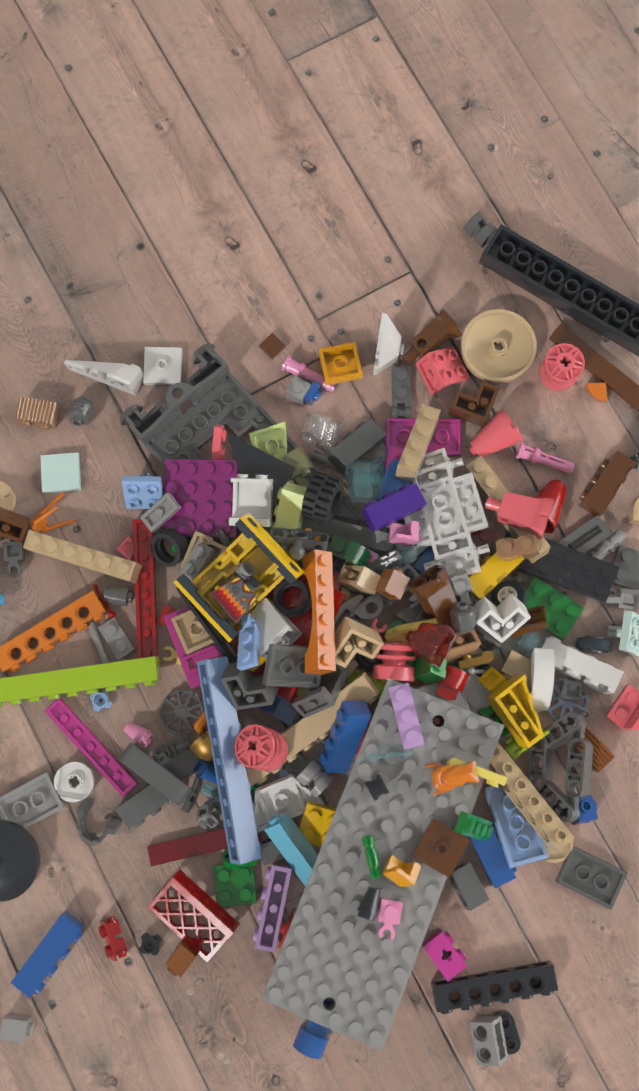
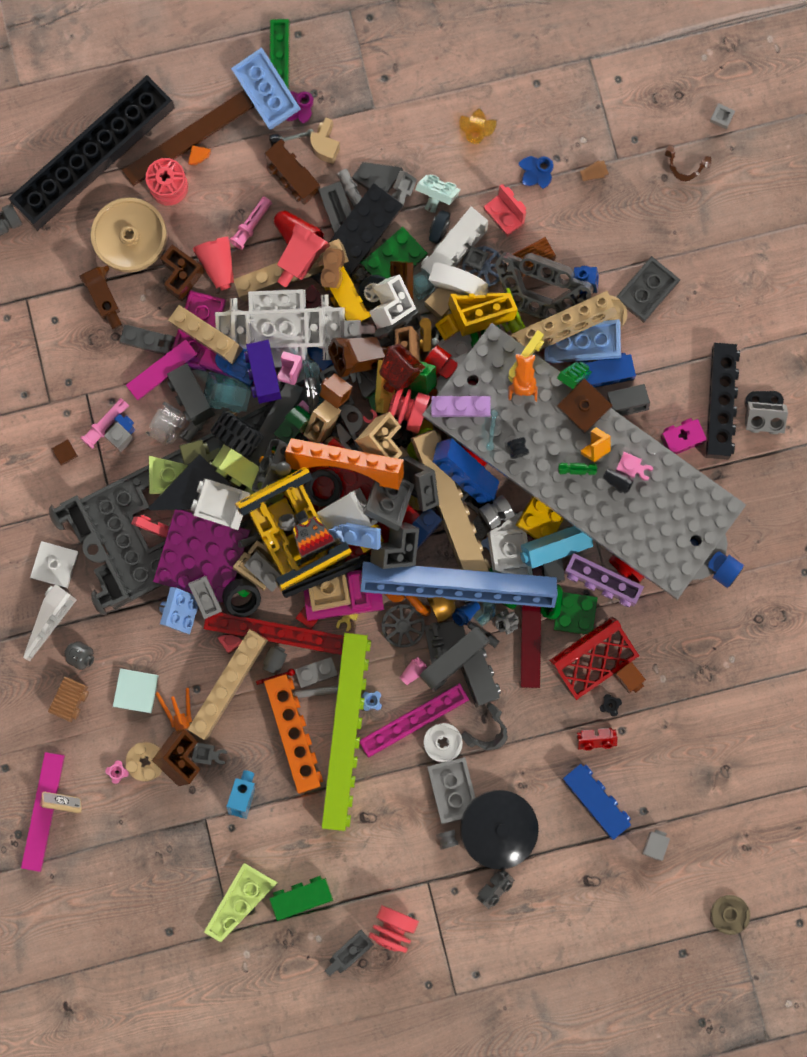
camera: 75 degrees left, 0 degrees up
(261, 748) = (458, 539): coral wheel -> none
(340, 363) = (103, 389): light orange plate -> none
(370, 409) = (158, 371): none -> dark pink tile
(388, 345) = (99, 339): white wedge -> none
(442, 369) = (136, 295): coral bracket -> none
(463, 617) = (383, 334): dark grey head -> none

